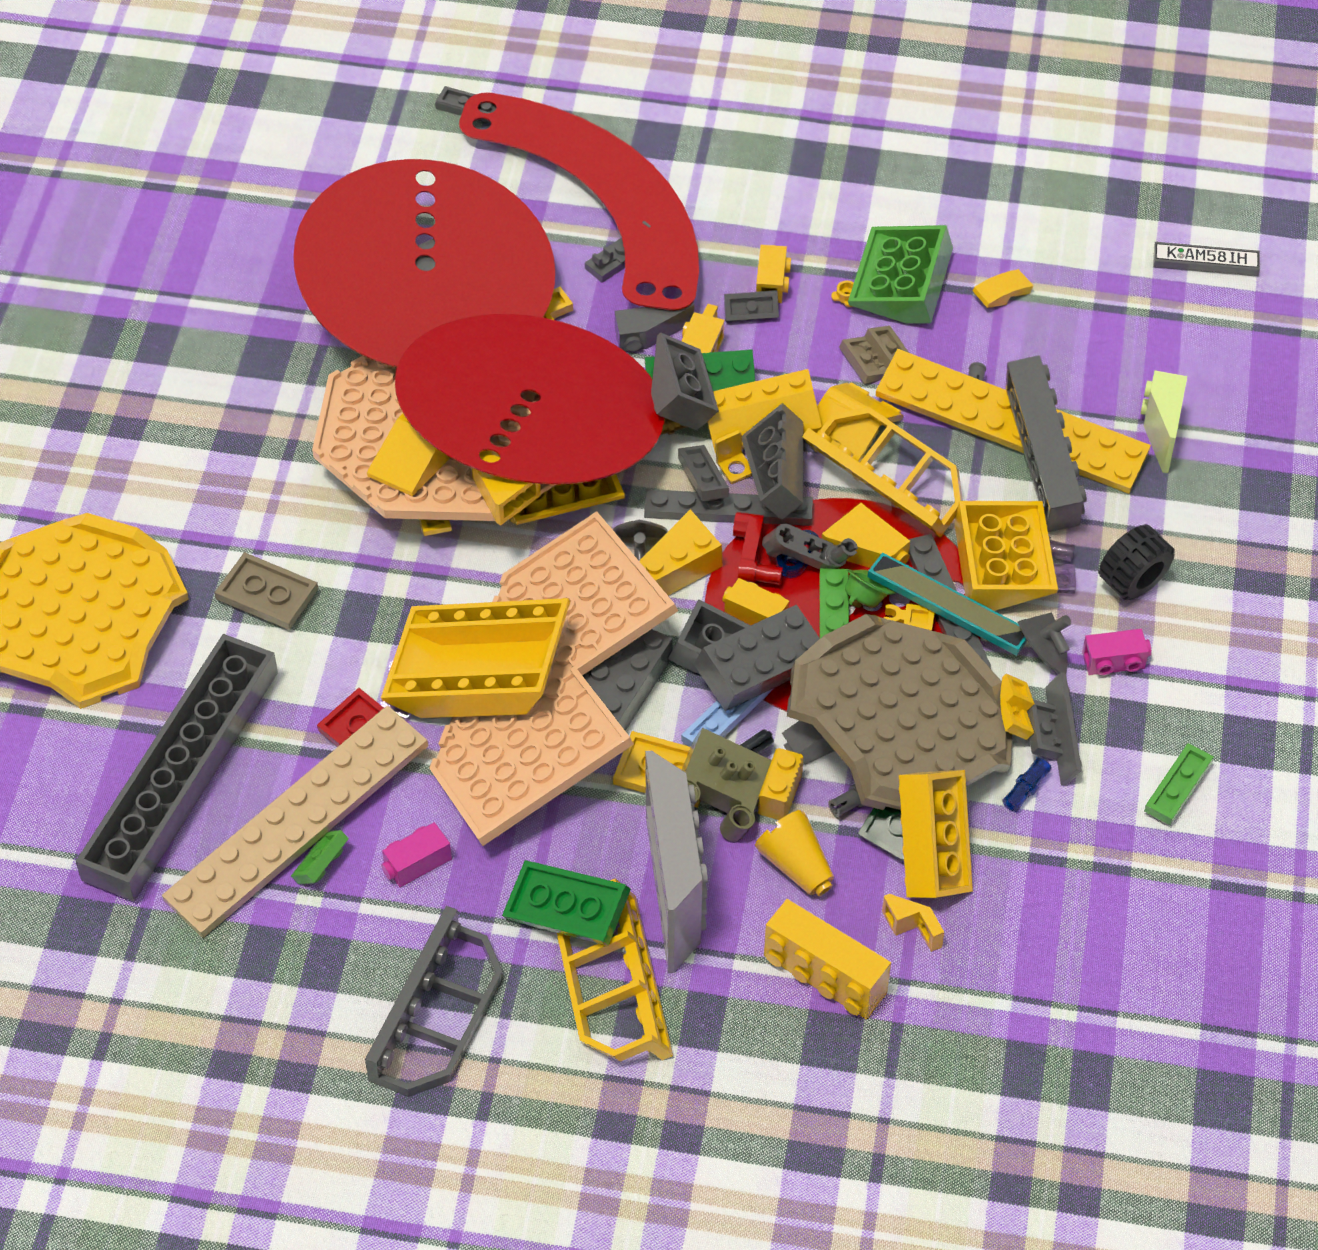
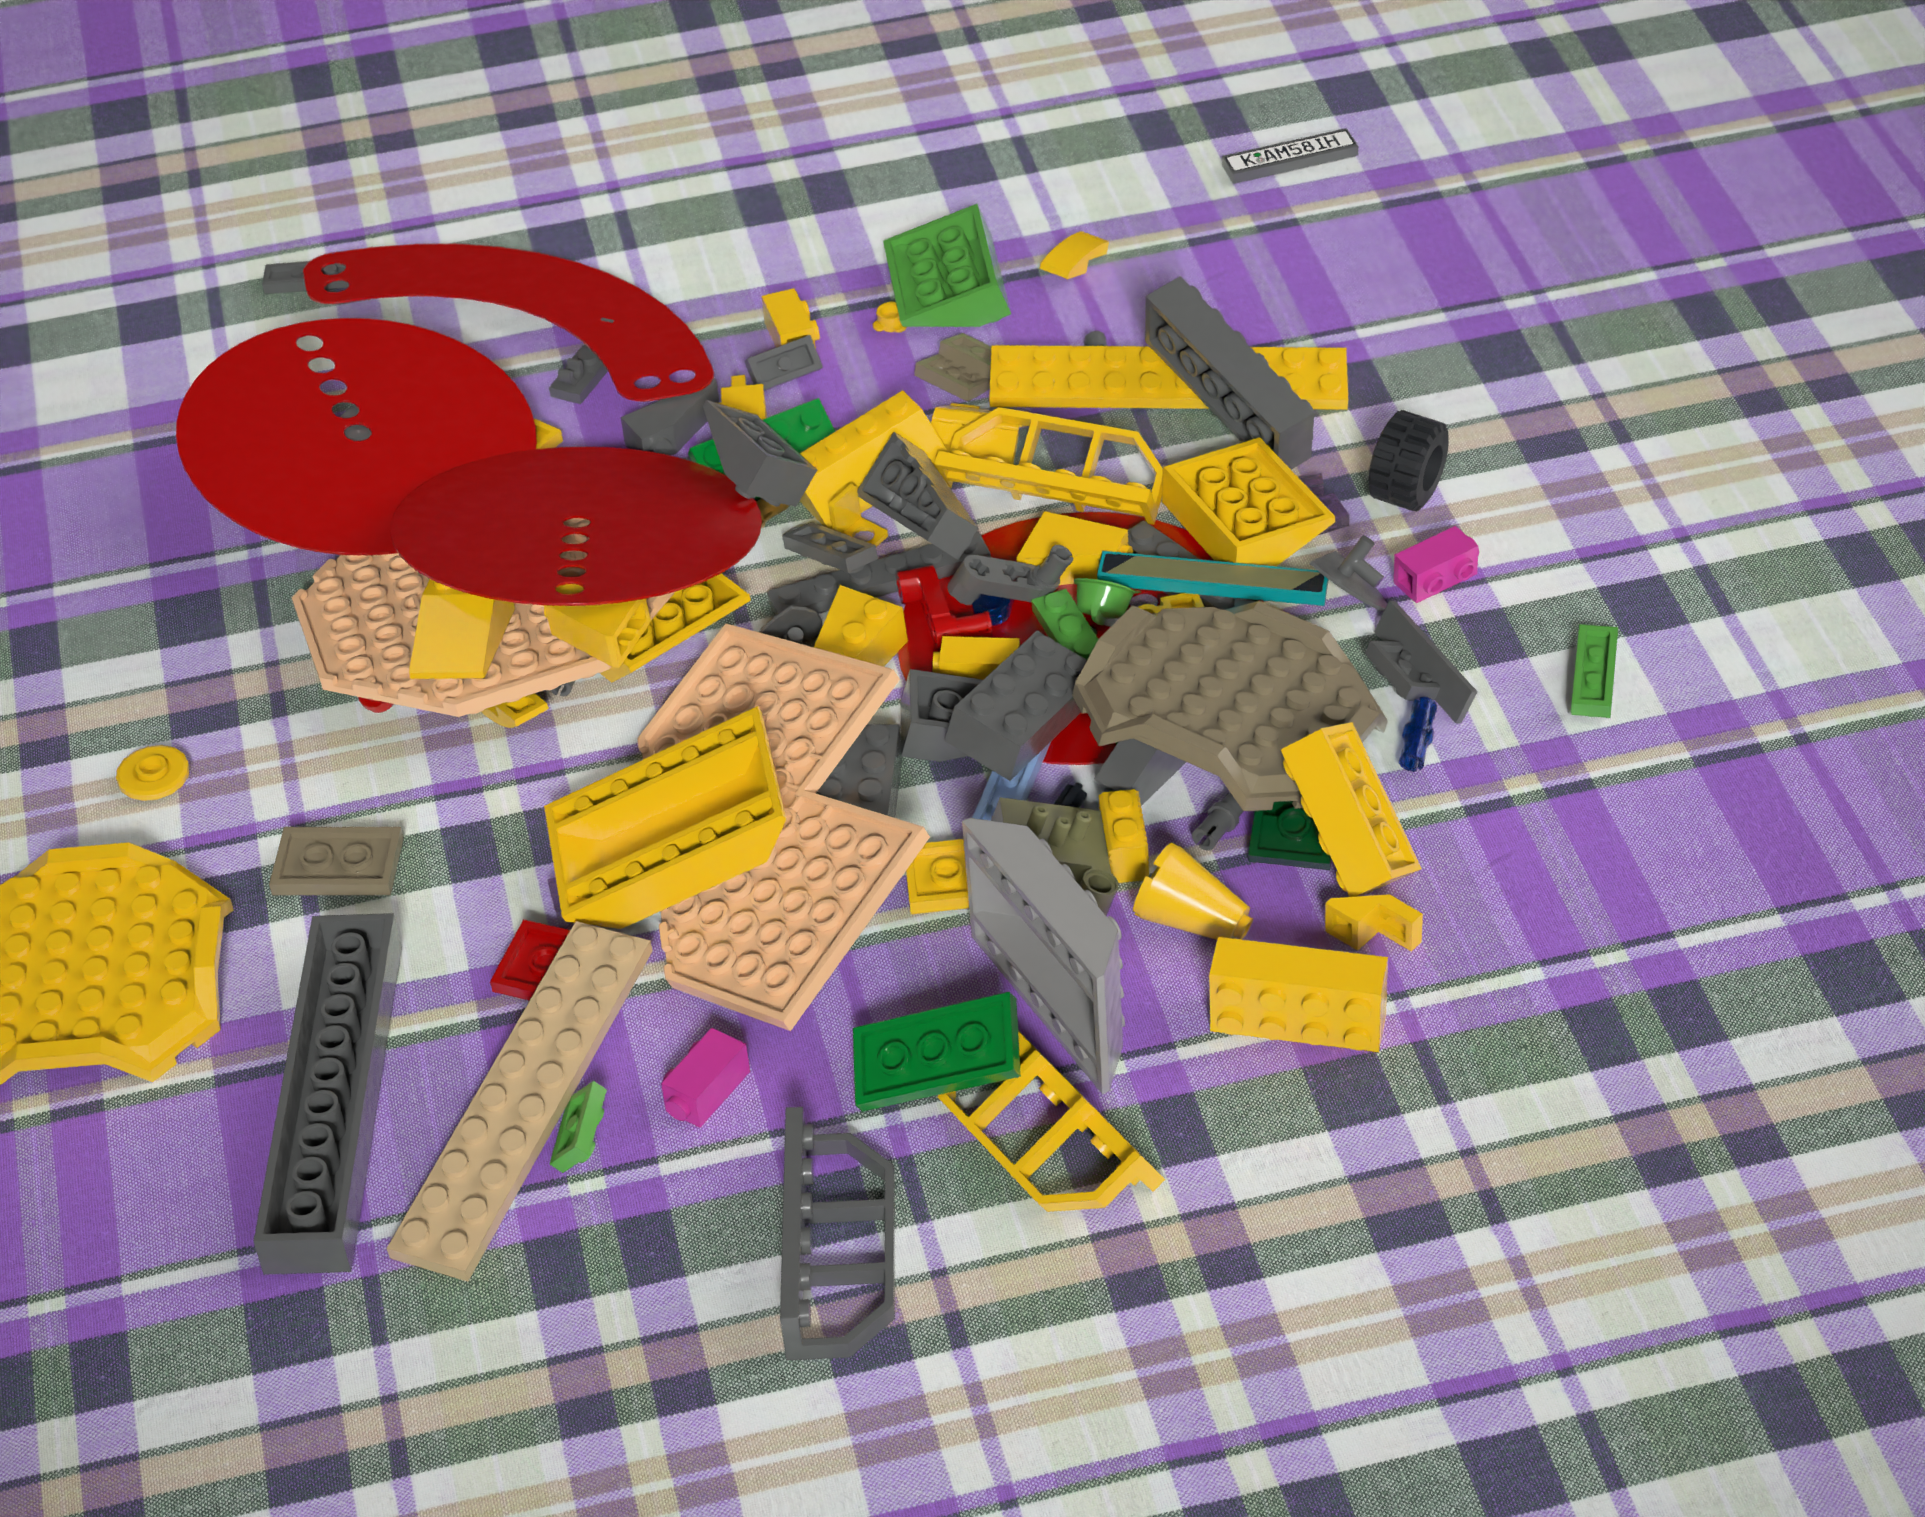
camera: 20 degrees left, 10 degrees down
(185, 473) = (152, 772): none -> yellow wheel
(1014, 702) = (1358, 651): yellow slope -> none
(1163, 413) = (1345, 311): yellowish green slope -> none

